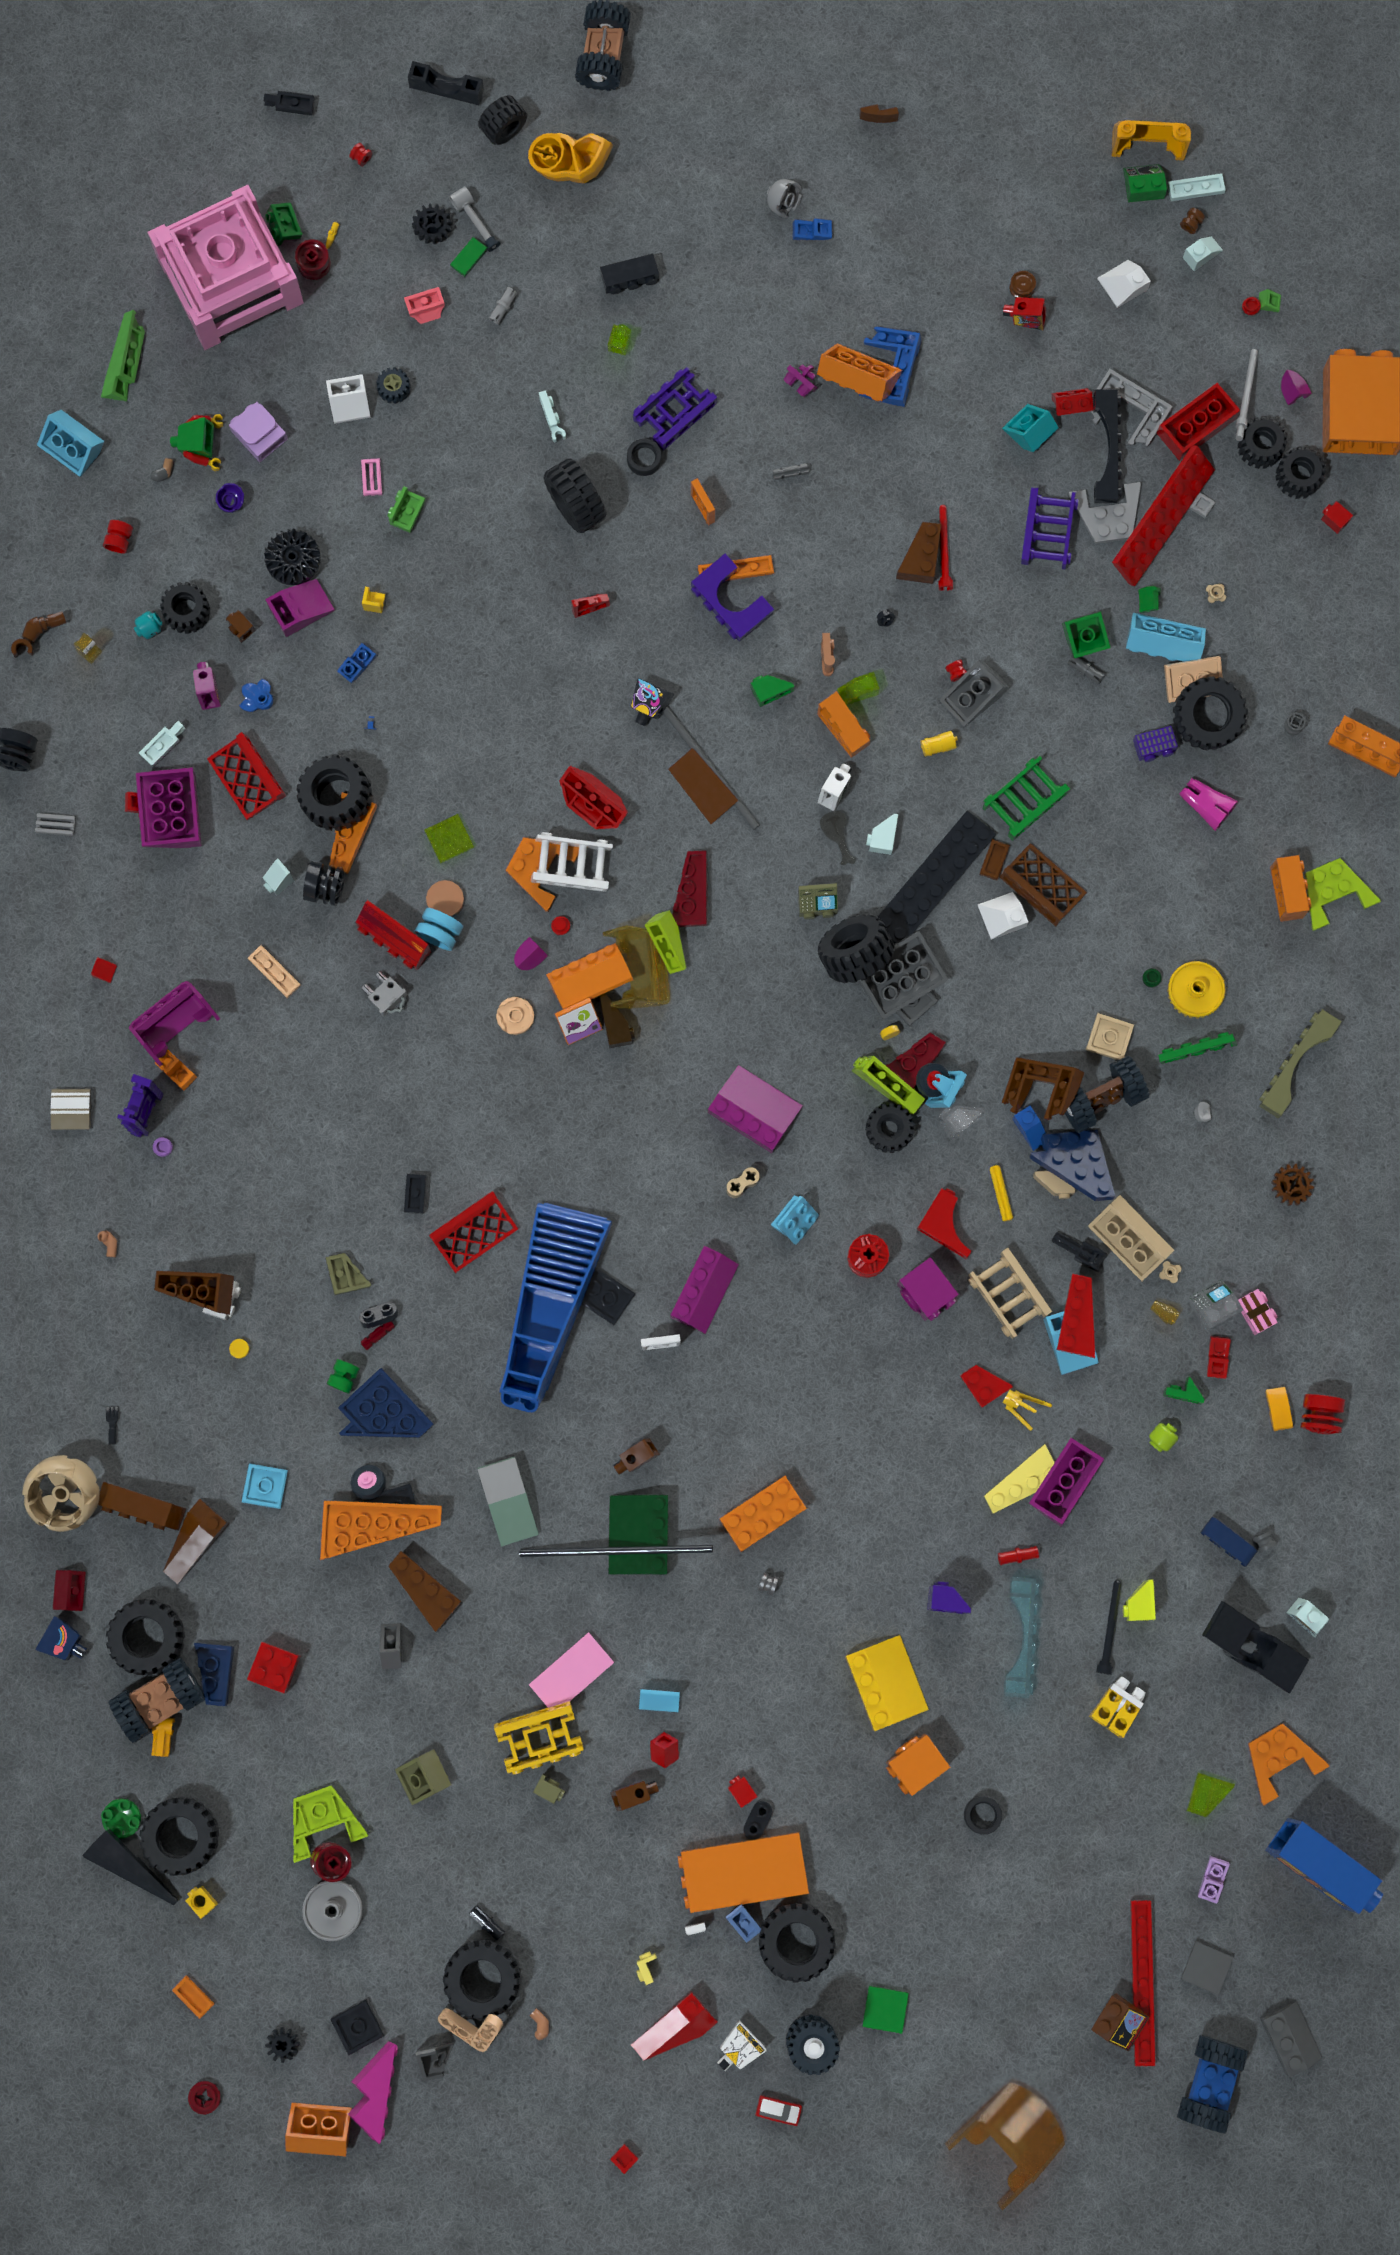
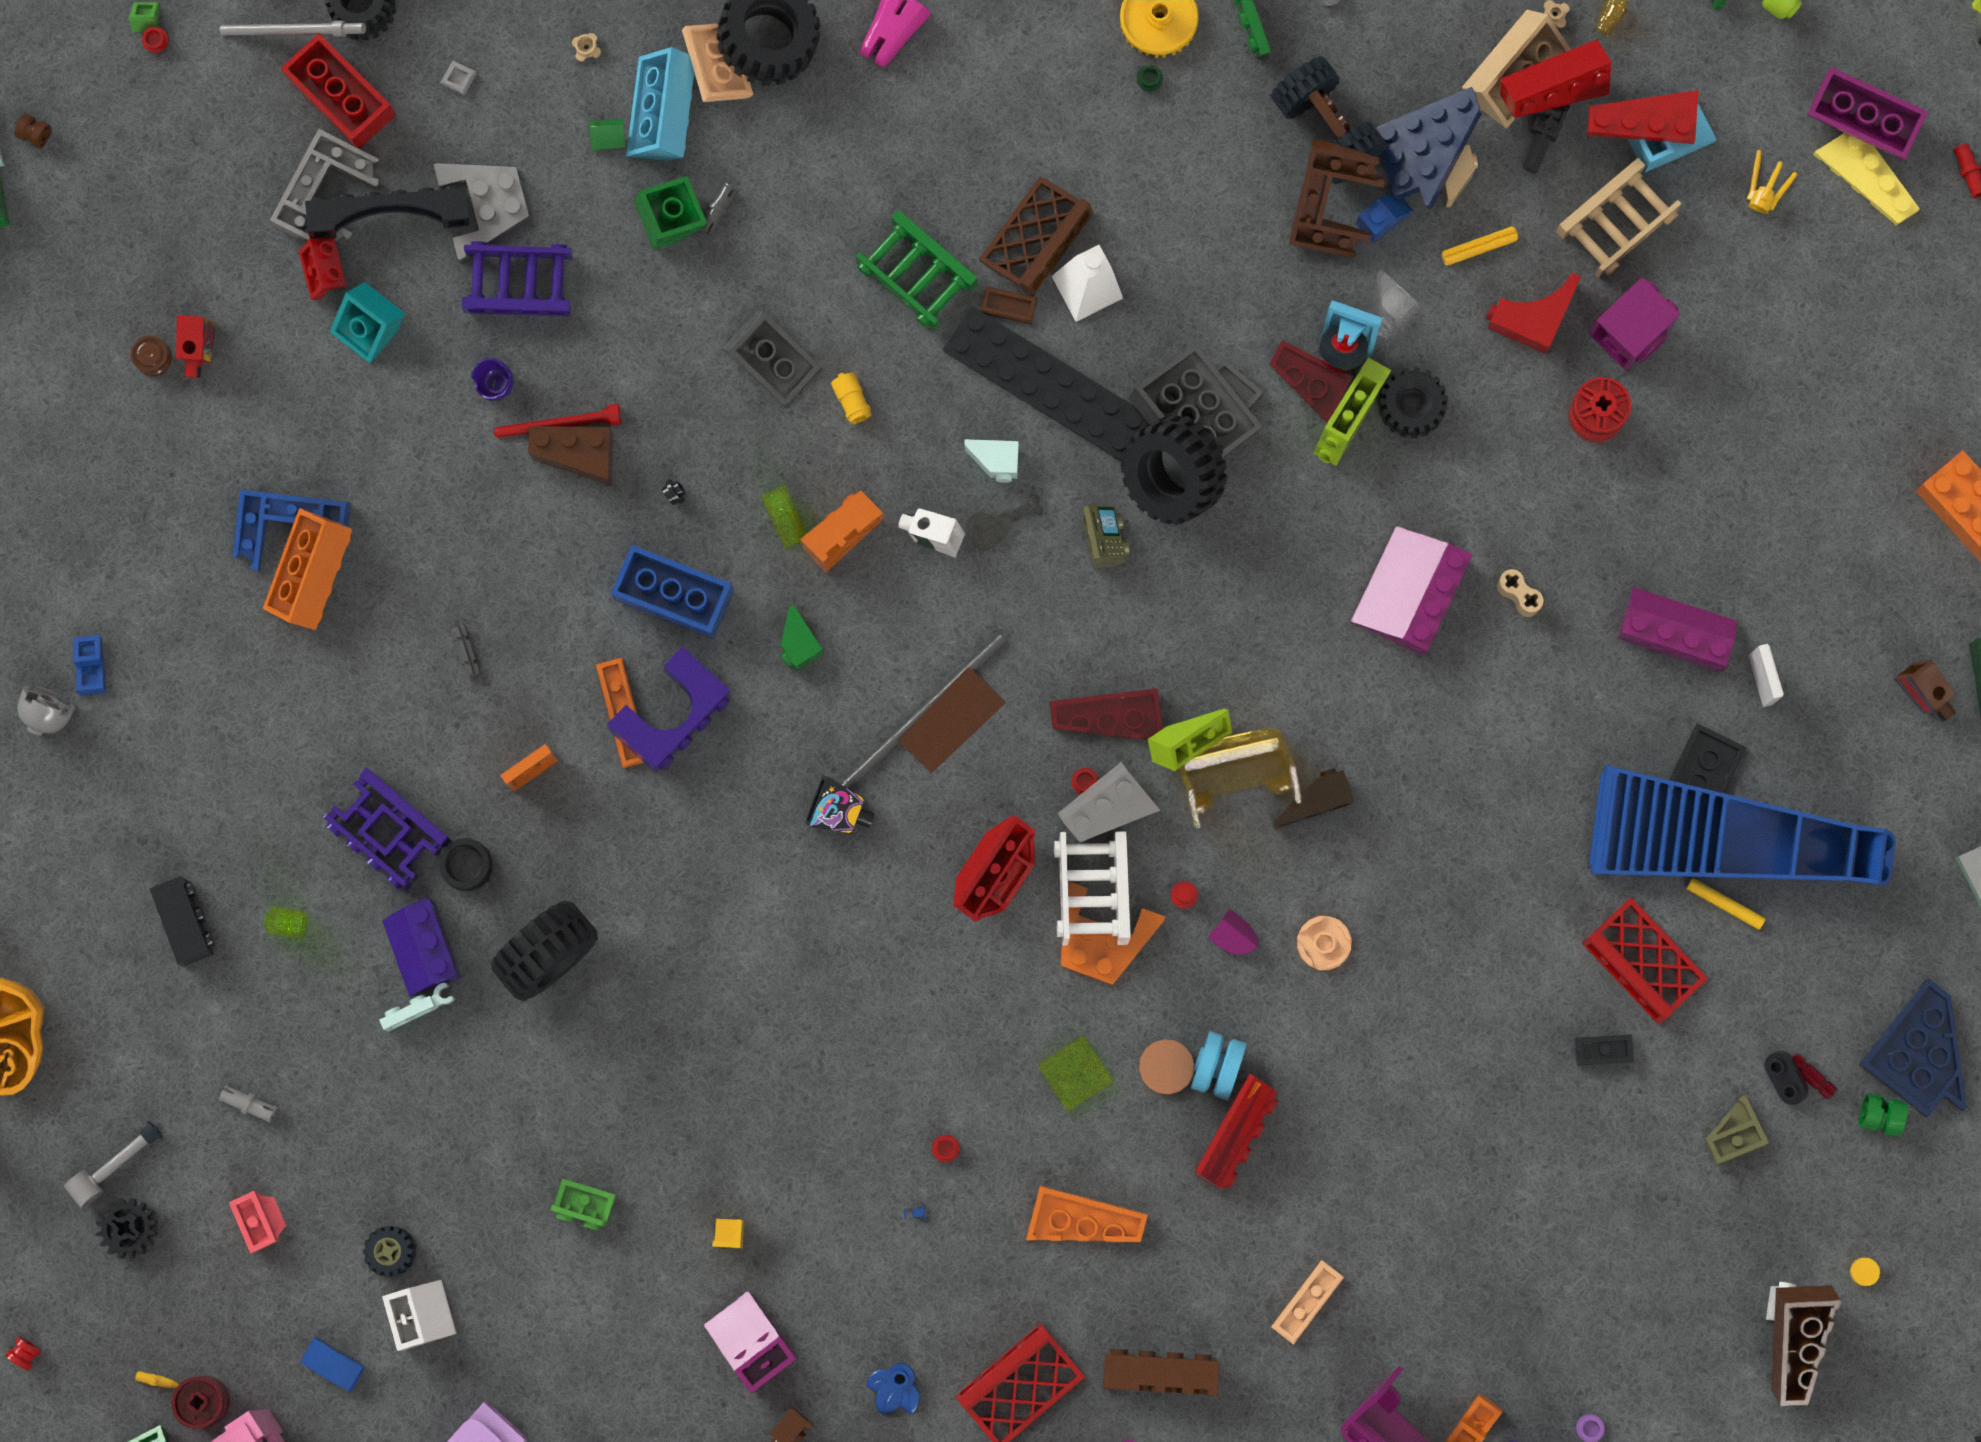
camera: 90 degrees left, 0 degrees up
(240, 867) = (1160, 1373): none -> reddish brown wedge
(277, 878) = (1172, 1315): light aqua slope -> none
(289, 545) = (698, 1361): black wheel -> none
(322, 774) = (1017, 1281): black tyre -> none
(324, 343) = (332, 1364): none -> blue slope
(327, 884) = (1172, 1243): black wheel -> none
(357, 663) = (826, 1245): blue slope -> none
(372, 492) = (512, 1269): bright pink tile -> none
(388, 996) = (1323, 1128): light grey piece -> none
(410, 747) = (945, 1148): none -> red plate
(468, 257) = (174, 1166): green tile -> none
(505, 1294) = (1726, 903): none -> yellow piece
(578, 1021) = (1324, 848): tile -> none
(589, 604) = (695, 903): red wing -> none
(589, 976) = (1260, 840): orange slope -> none
(592, 425) = (421, 947): none -> dark purple slope
(628, 880) = (1107, 805): none -> light grey wedge
(648, 869) = (1083, 779): none -> red plate
(795, 1219) = (1559, 517): medium azure bracket -> none
(806, 386) = (318, 663): magenta hips -> none
(813, 608) = (672, 592): none -> blue brick
(828, 659) = (734, 565): nougat plate -> none
(889, 1032) = (1277, 418): yellow tile -> none
(956, 670) = (741, 384): red wheel -> none
(983, 501) = (486, 372): none -> dark purple hair
(984, 1385) = (1747, 239): red wing -> none
(1109, 1037) = (1241, 124): tan plate -> none
(1113, 1259) = (1558, 81): none -> red wedge
(1124, 282) = (133, 215): white slope -> none
(1155, 743) = (816, 104): dark purple brick -> none
(1163, 515) = (483, 124): red plate -> none
(1201, 252) = (80, 114): light aqua slope -> none

